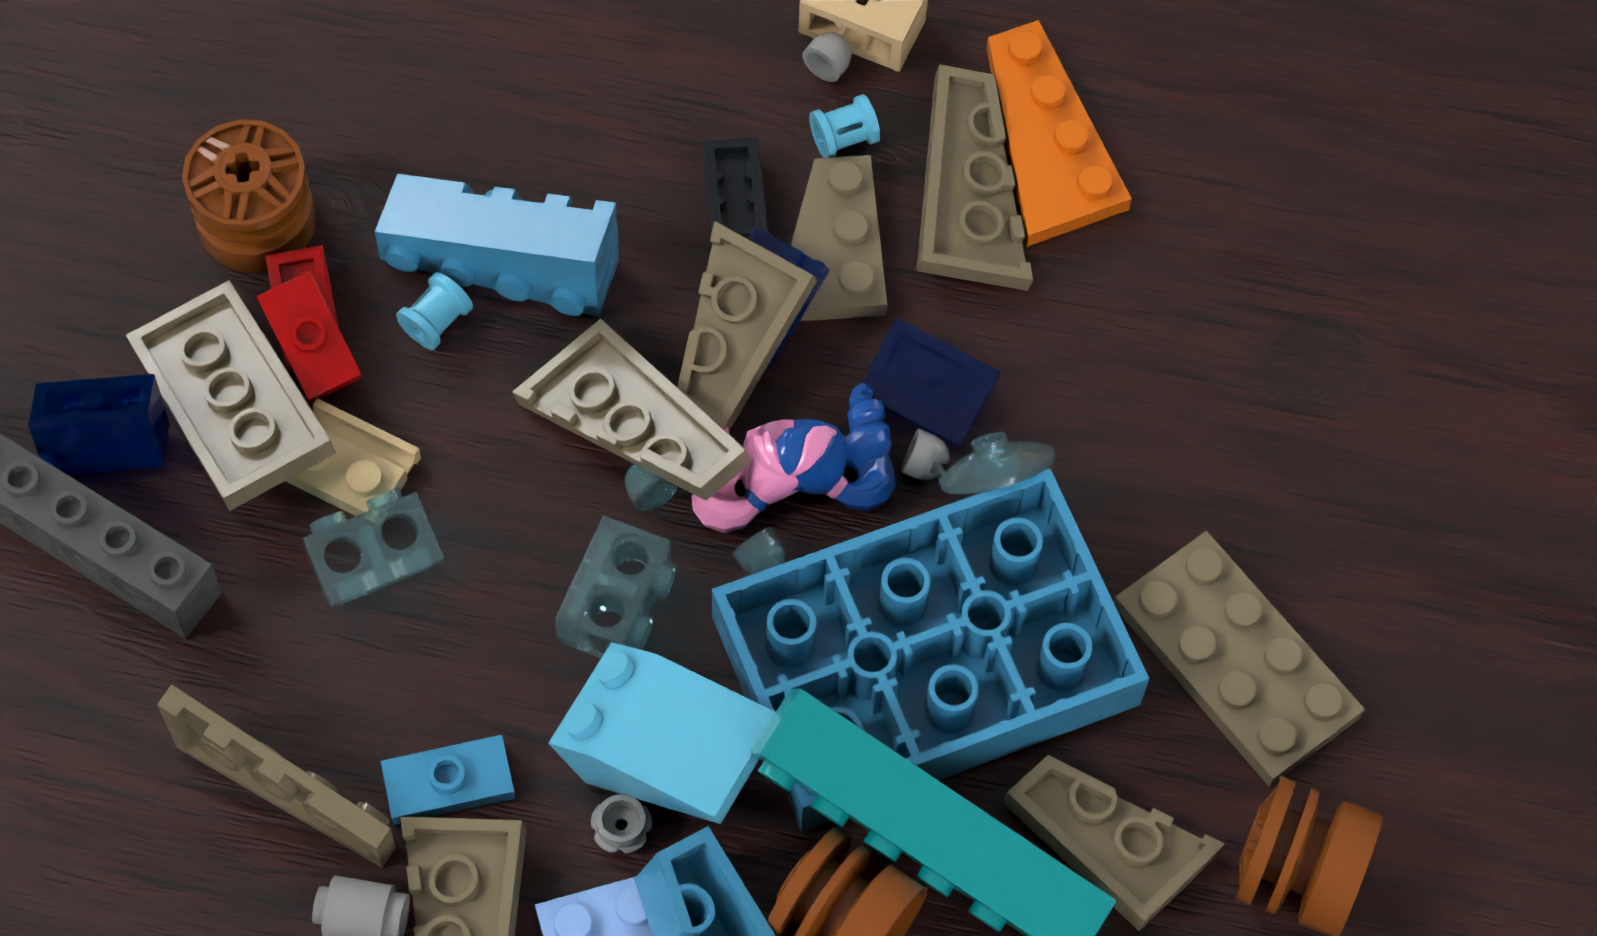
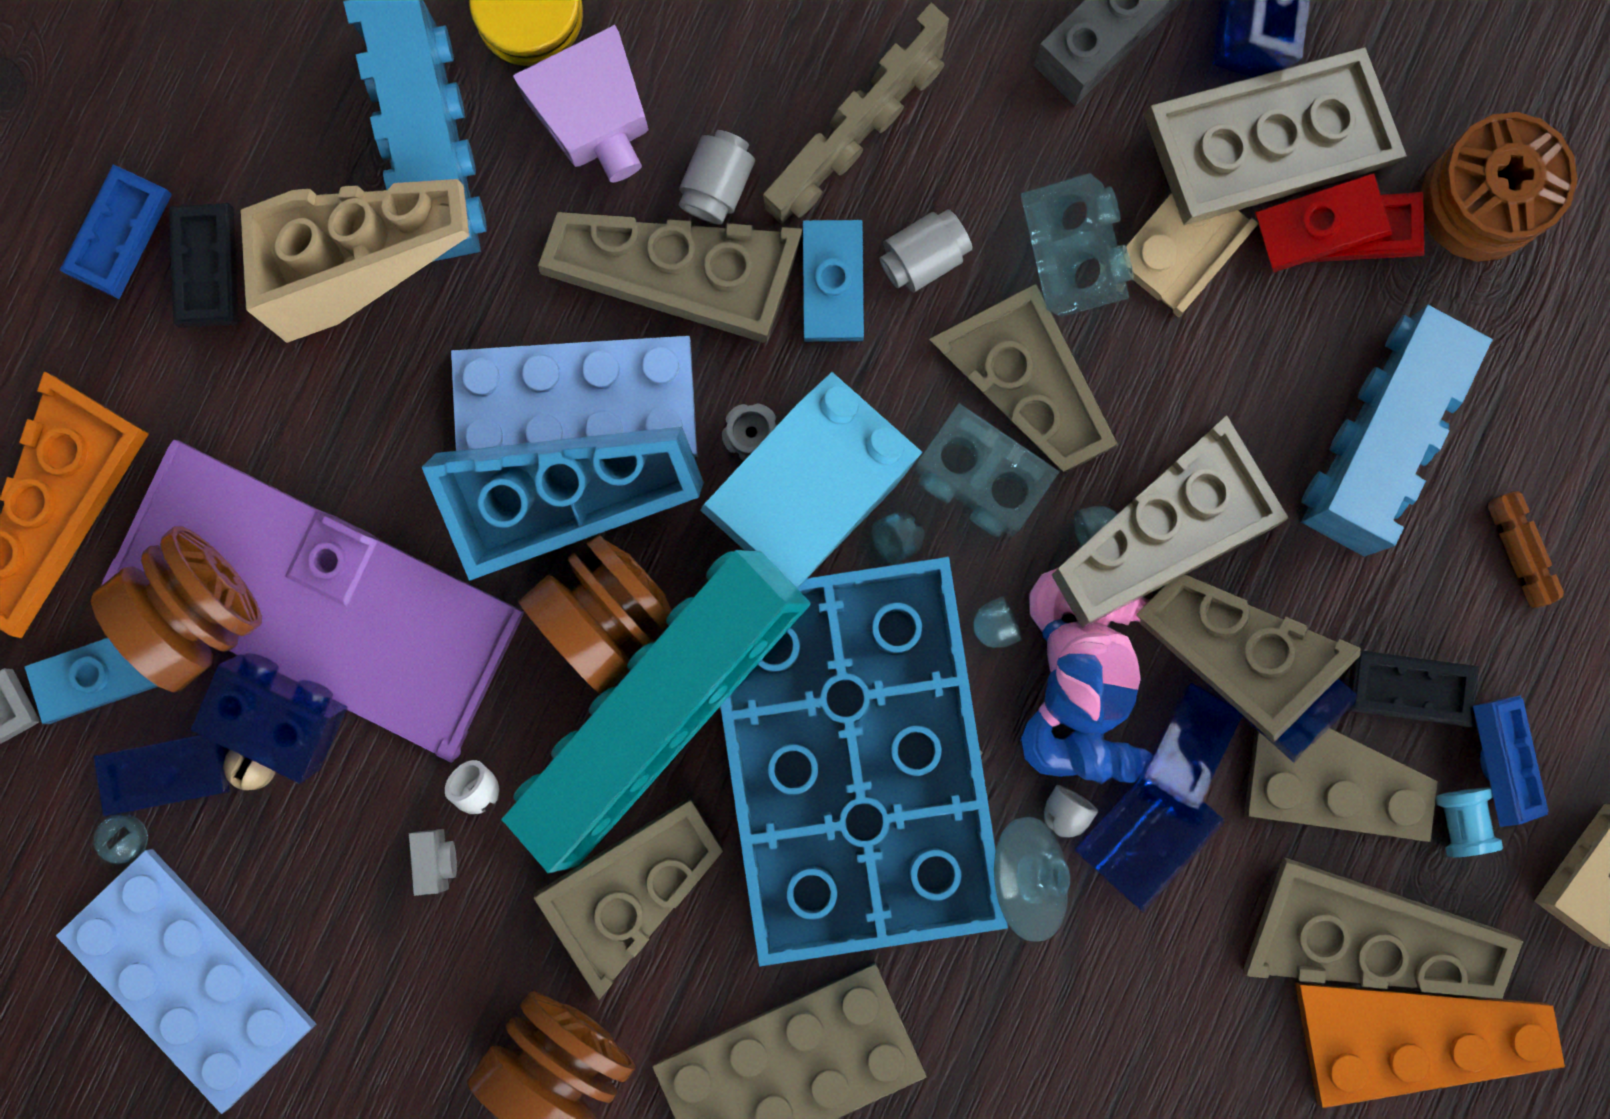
camera: 110 degrees right, 20 degrees up
(401, 692) = (925, 250): none -> light grey brick
(434, 311) = (1332, 354): medium azure bush -> none
(509, 571) = (1031, 376): none -> dark tan wing
(583, 126) = (1525, 549): none -> dark orange axle
(710, 655) = (897, 536): none -> clear light blue hinge
(780, 104) = (1510, 761): none -> blue plate
(828, 56) = (1563, 827): light grey hinge -> none
(839, 361) = (1189, 750): none -> clear blue plate

